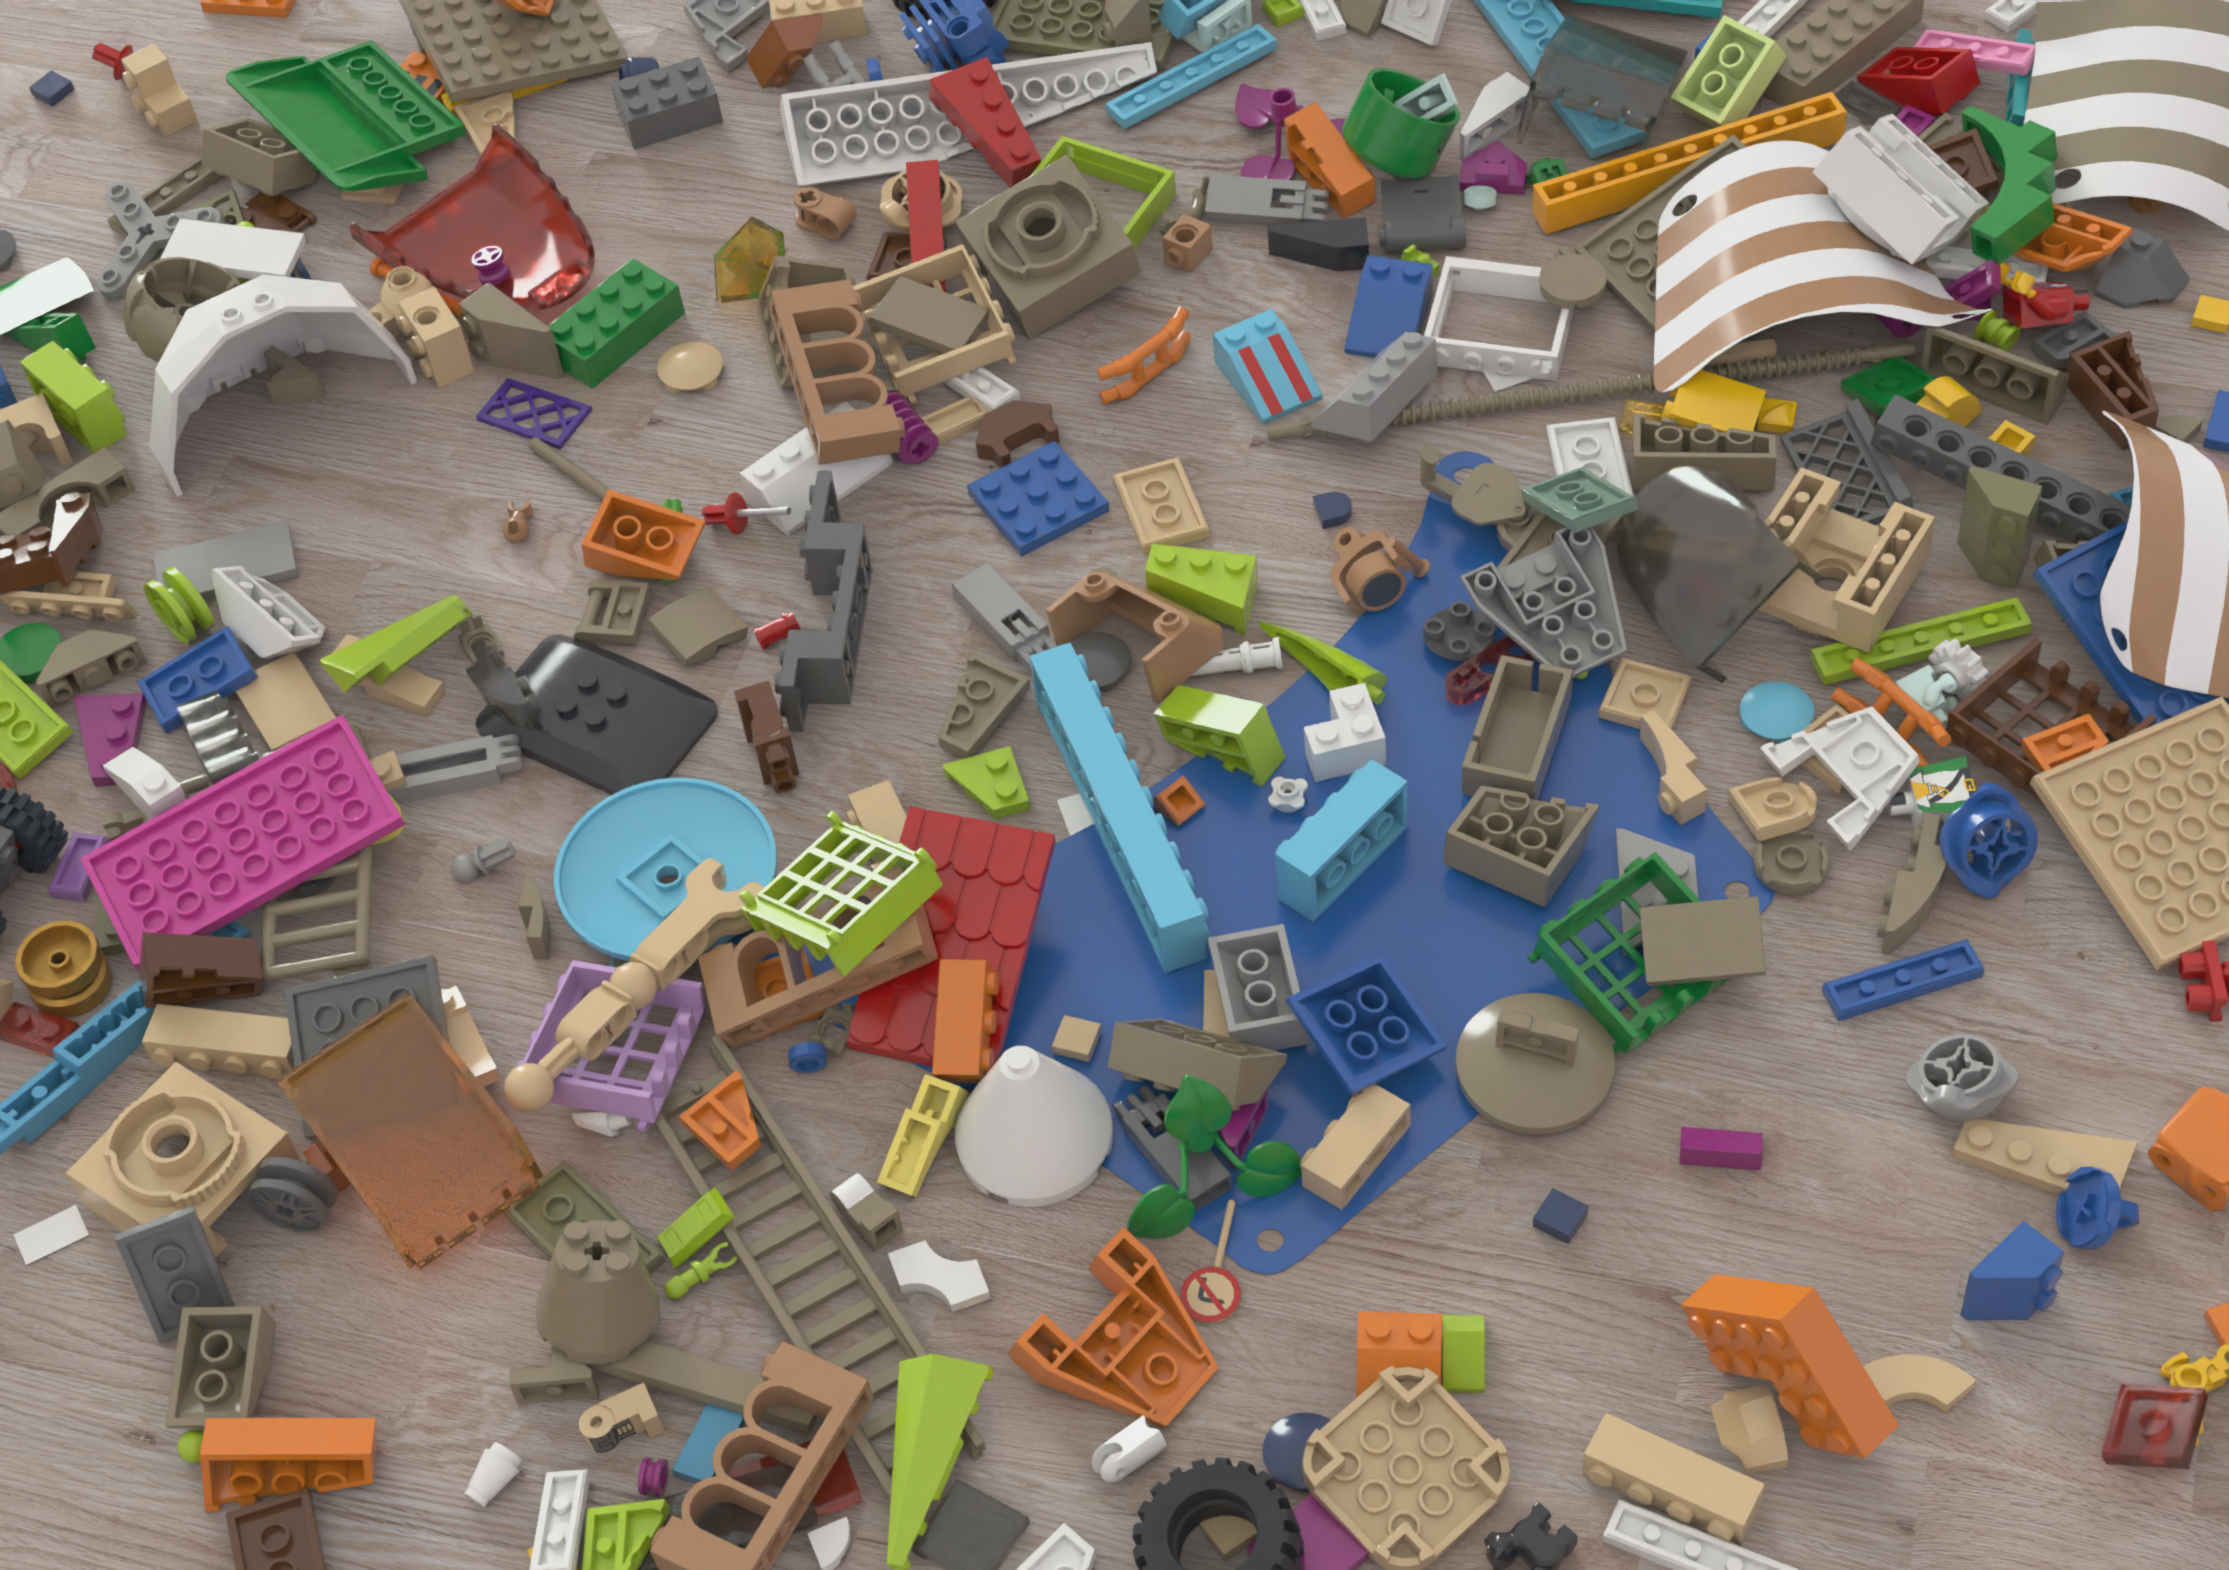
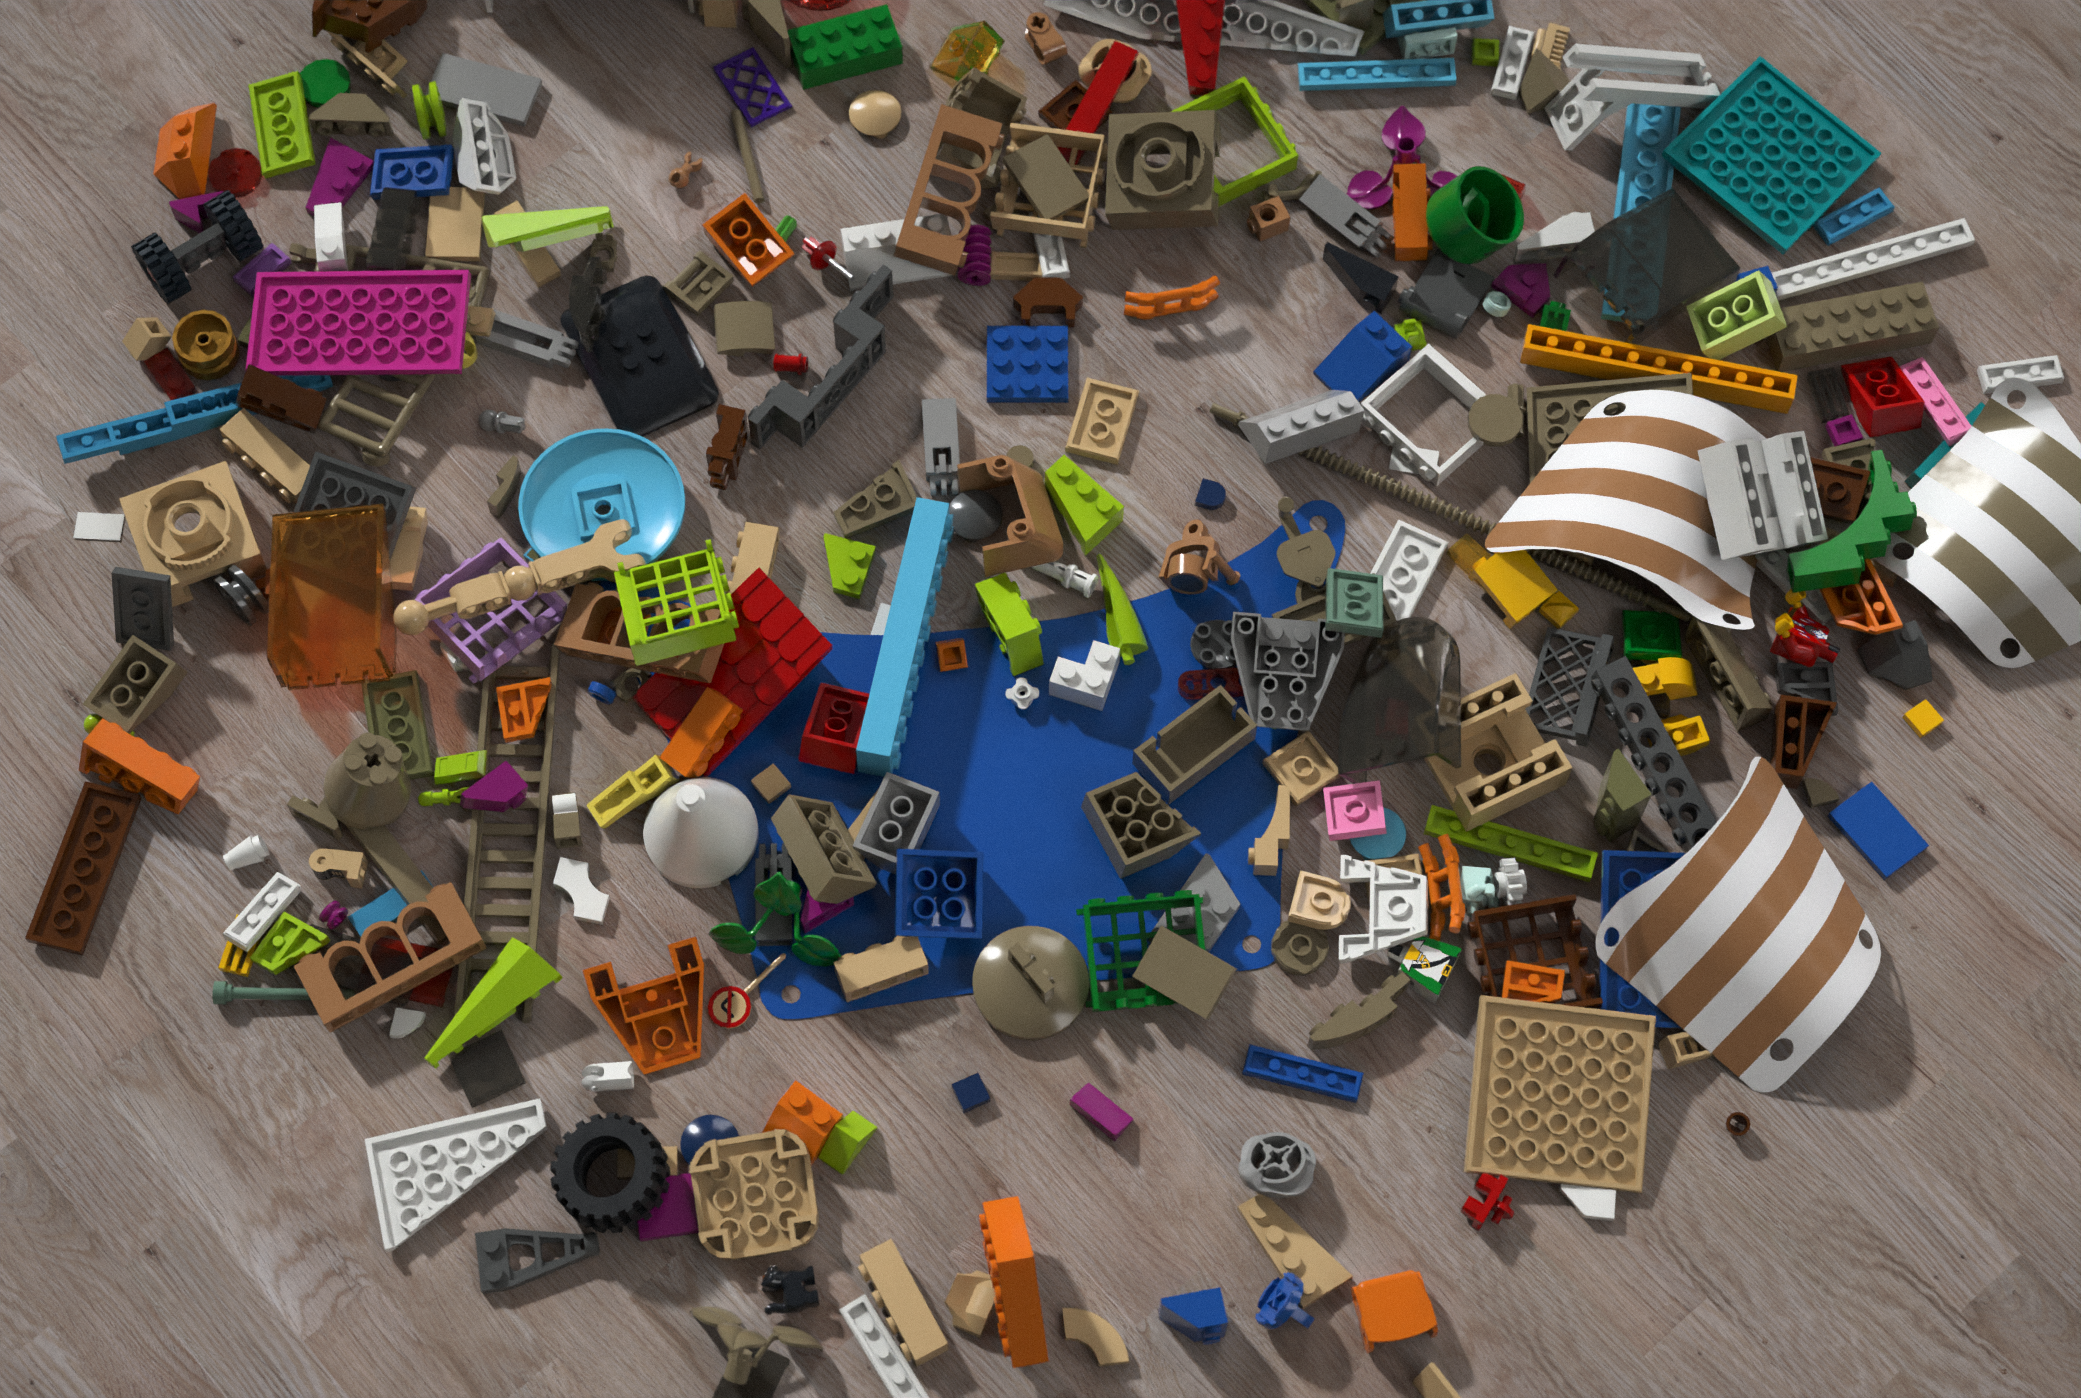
camera: 25 degrees right, 15 degrees up
(761, 1221) = (496, 791): none -> magenta slope
(1110, 940) = (834, 728): none -> red slope
(1265, 366) = (1247, 355): medium azure slope -> none
(1341, 839) = (1023, 752): medium azure brick -> none
(1431, 100) = (1495, 215): light aqua slope -> none
(1737, 700) = (1354, 810): none -> bright pink tile
(1738, 454) = (1473, 612): dark tan wedge -> none
(1976, 289) = (1768, 600): magenta slope -> none
(1981, 828) = (1424, 1017): blue piece -> none
(1997, 331) = (1758, 640): lime bush -> none

